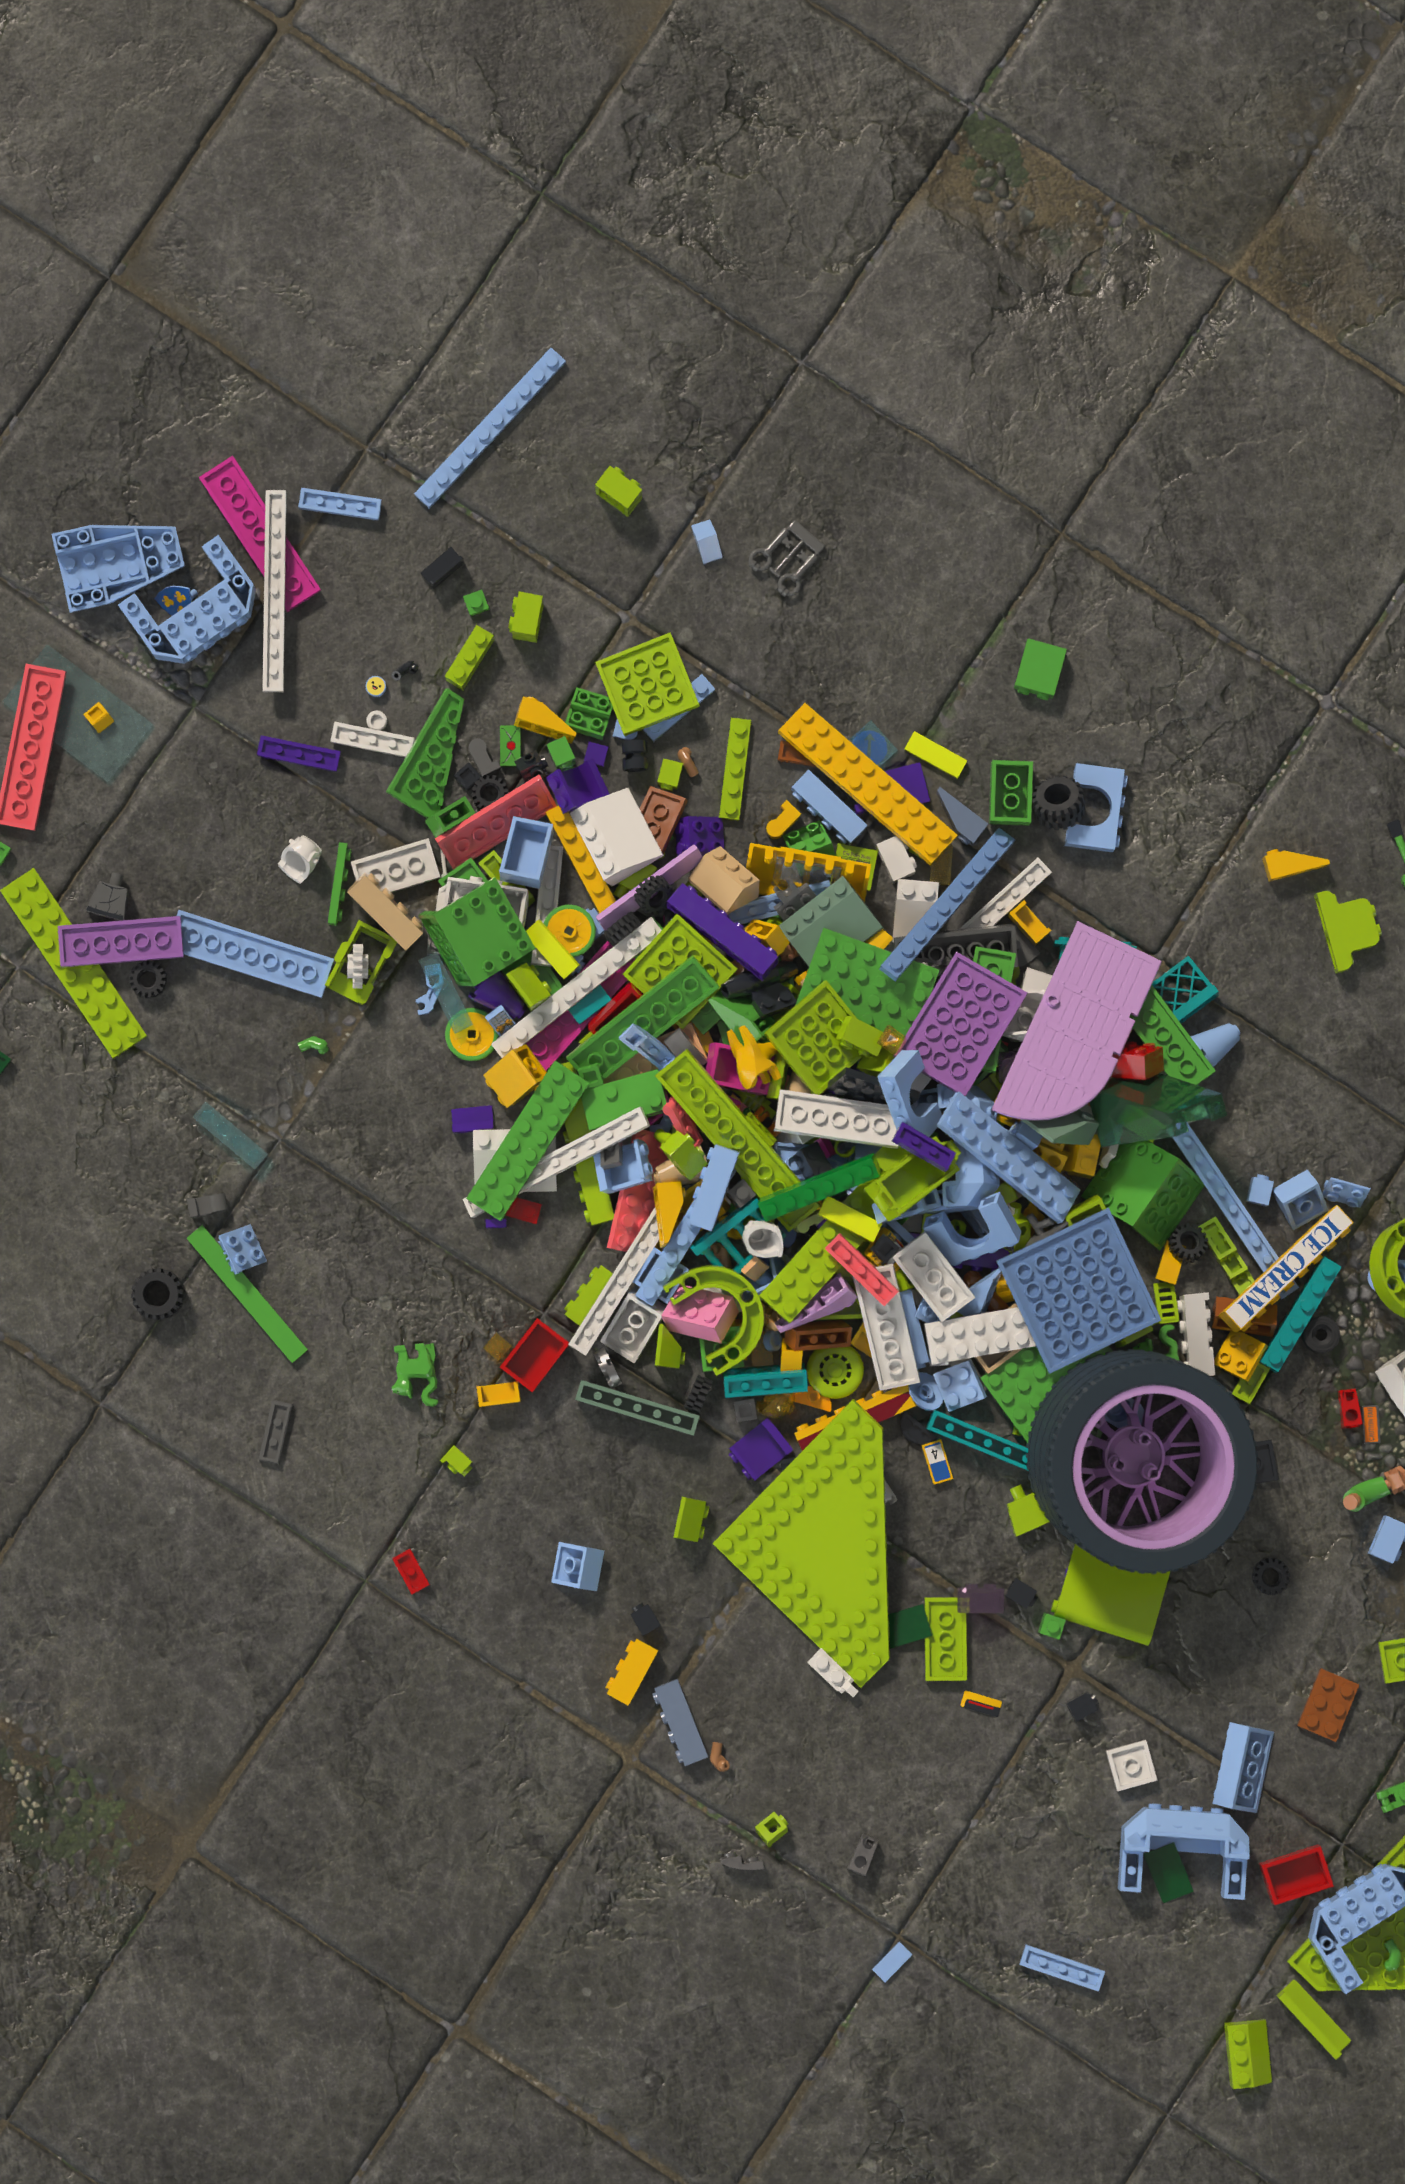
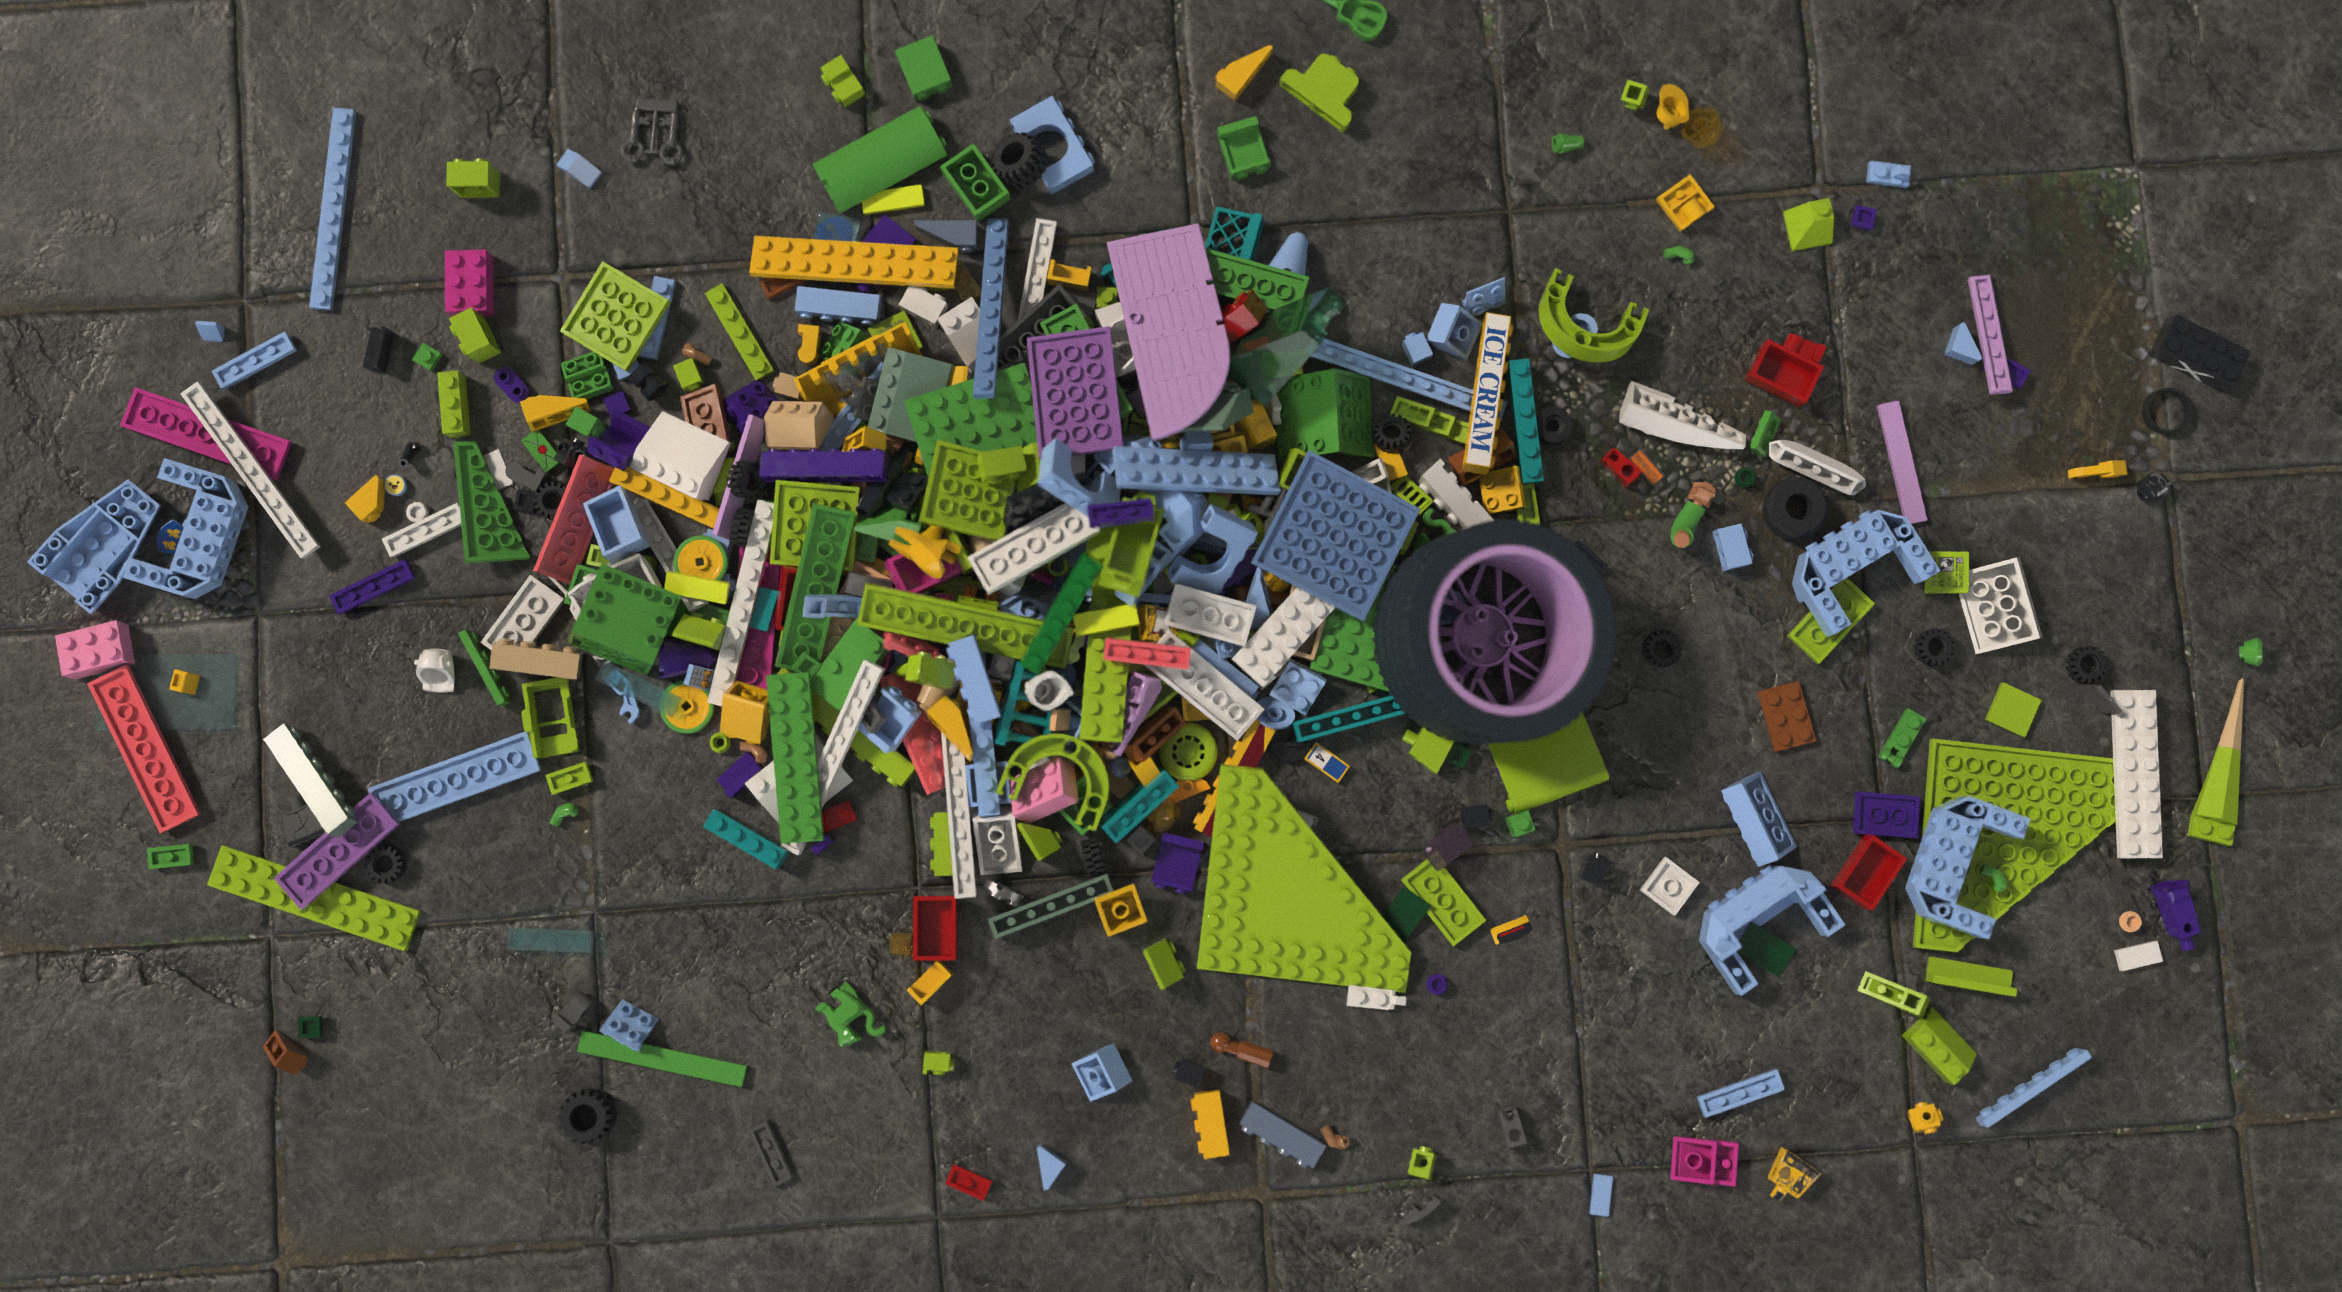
camera: 35 degrees left, 0 degrees up
(50, 641) = (95, 649): none -> bright pink brick
(142, 870) = (311, 780): none -> brick
(323, 454) = (210, 331): none -> light blue slope
(339, 1021) = (569, 778): none -> lime plate
(346, 683) = (368, 500): none -> yellow slope
(357, 966) = (548, 722): white gear -> none
(440, 1173) = (746, 838): none -> teal brick
(450, 816) = (532, 543): bright green brick -> none
(464, 733) = (497, 469): none -> white sticker
(469, 1082) = (714, 739): none -> lime plate
(483, 1607) = (1050, 1165): none -> light blue slope
(500, 1110) = (756, 749): none -> medium nougat arm
(525, 675) = (511, 384): none -> dark purple plate
(553, 569) = (469, 281): none -> dark pink piece
(688, 1452) = (1120, 910): none -> yellow slope
(700, 1635) = (1243, 1050): none -> dark orange piece
(740, 842) = (786, 387): none -> tan brick
(884, 1248) = (1152, 622): black tile -> none
(890, 1700) = (1437, 984): none -> dark purple plate
(891, 1039) = (1027, 447): clear yellow tile -> none
(950, 716) = (880, 159): none -> bright green cylinder
(967, 630) = (843, 82): none -> lime brick
(993, 1997) = (1704, 1160): none -> dark pink slope
(1044, 1535) = (1458, 755): none -> dark green plate
(1045, 962) = (1106, 296): none -> lime plate
(1051, 2061) = (1790, 1175): none -> torso
(1147, 1265) = (1375, 473): none -> white slope
(1189, 2091) = (1919, 1124): none -> yellow brick
(1242, 1986) = (1894, 994): none -> lime slope
(1245, 926) = (1243, 148): none -> bright green panel
(1286, 2139) = (2039, 1082): none -> light blue plate
(1346, 1842) = (1886, 814): none -> dark purple plate

